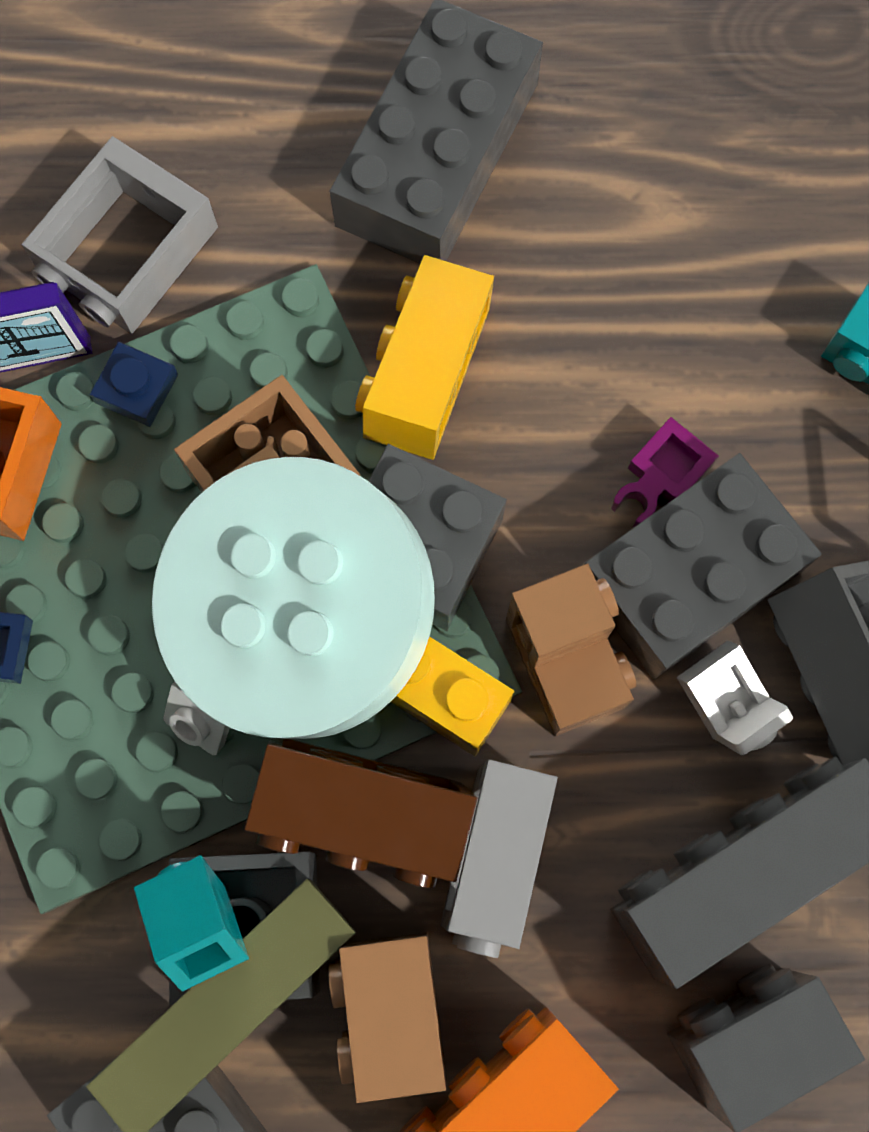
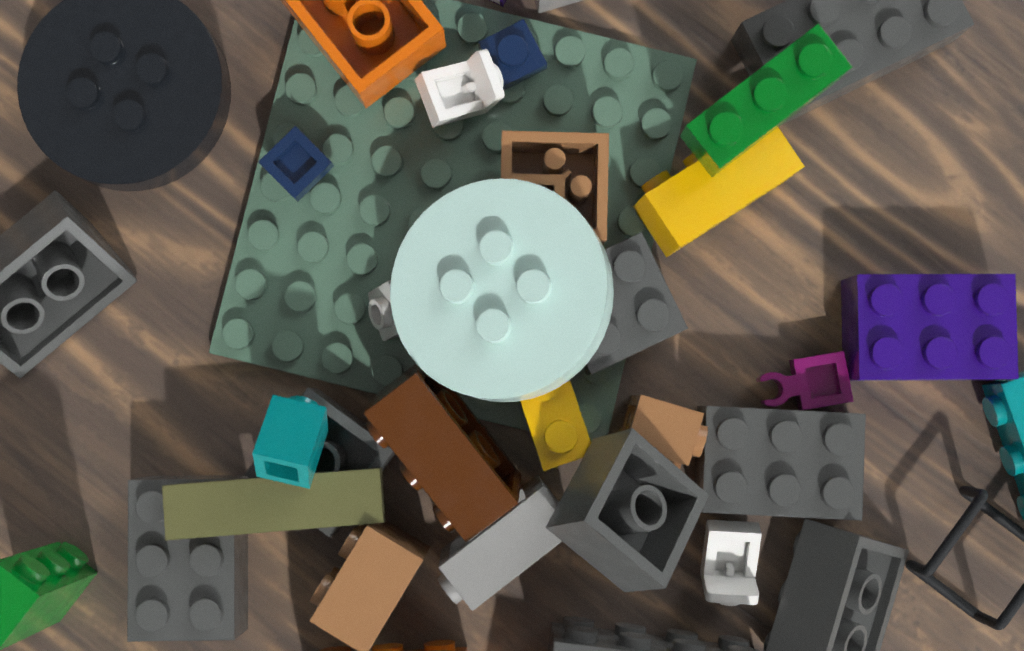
camera: 40 degrees right, 10 degrees up
(106, 449) = (461, 89): none -> white bracket
(406, 235) = (765, 100): none -> green brick
(593, 715) = (628, 511): none -> dark grey brick
(729, 335) = (930, 327): none -> dark purple brick

